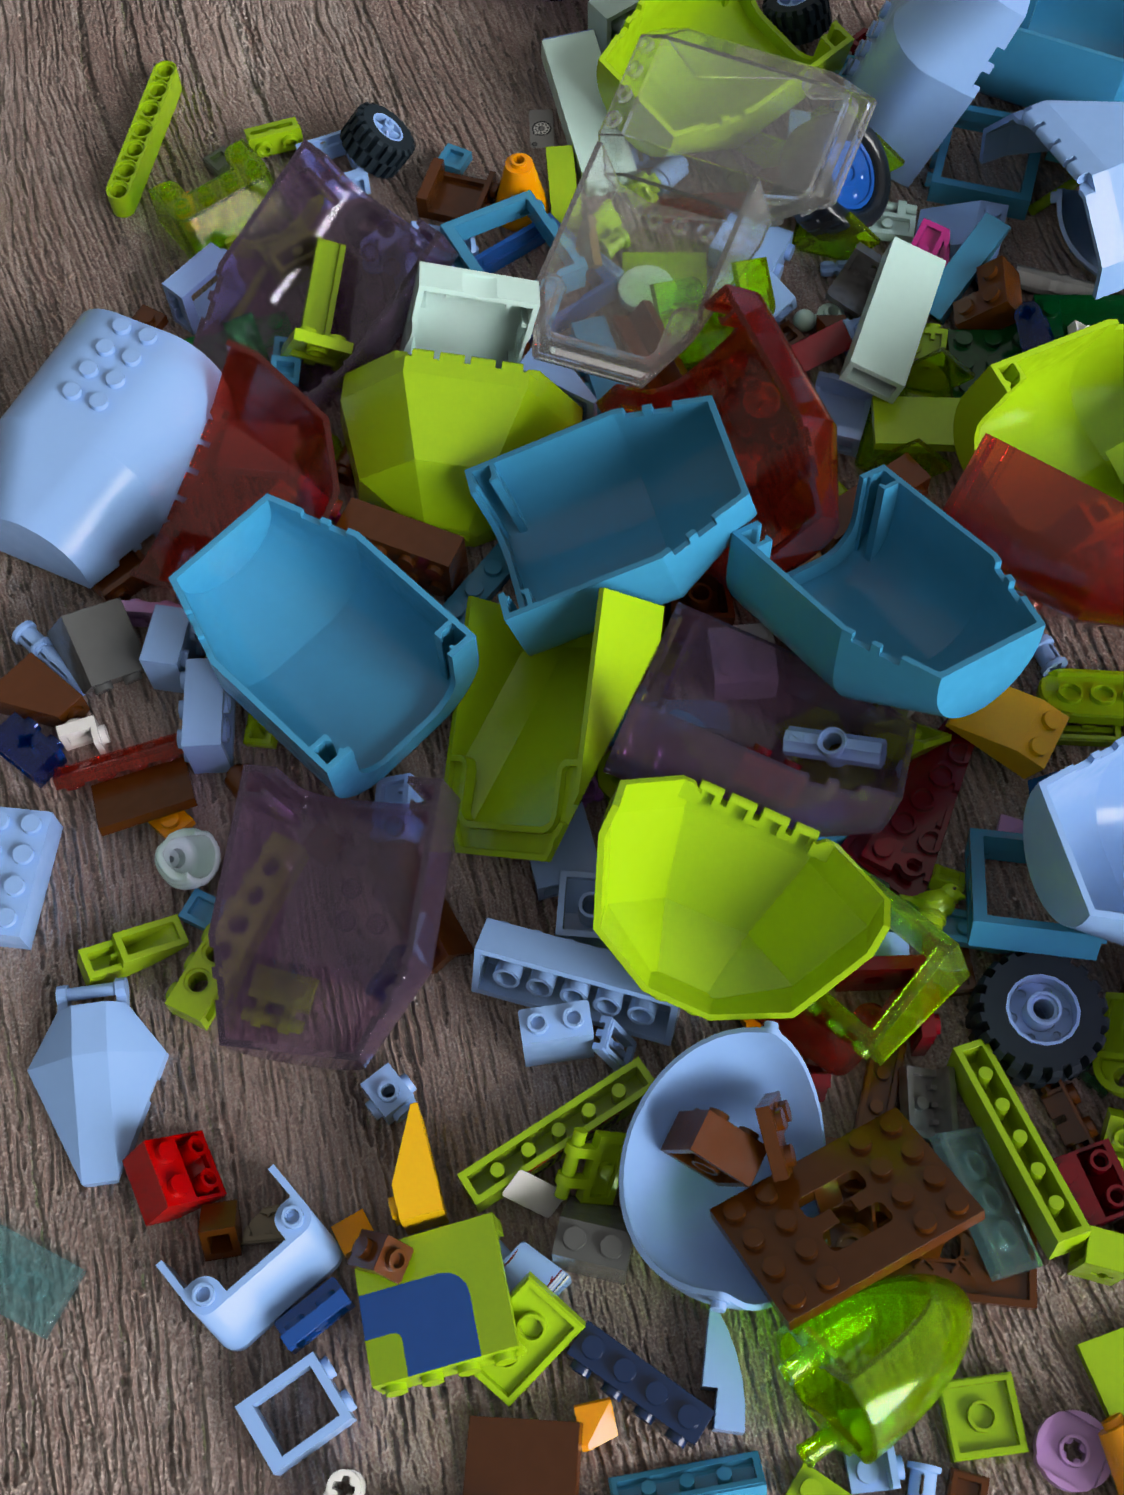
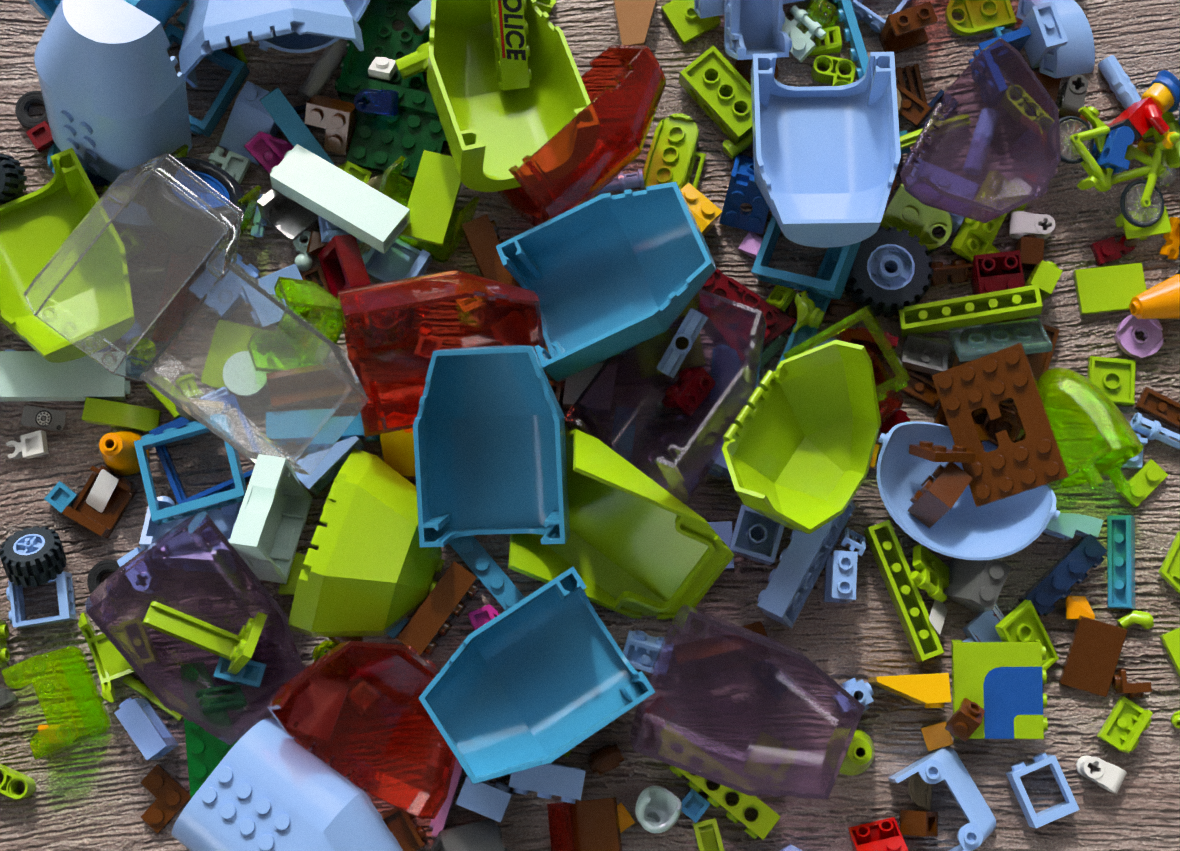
camera: 80 degrees left, 15 degrees up
(311, 1111) = (859, 763): none -> lime cone
(313, 1315) = (985, 770): blue bracket -> none
(469, 189) = (102, 490): none -> white sticker
(504, 120) = (31, 445): none -> white plate

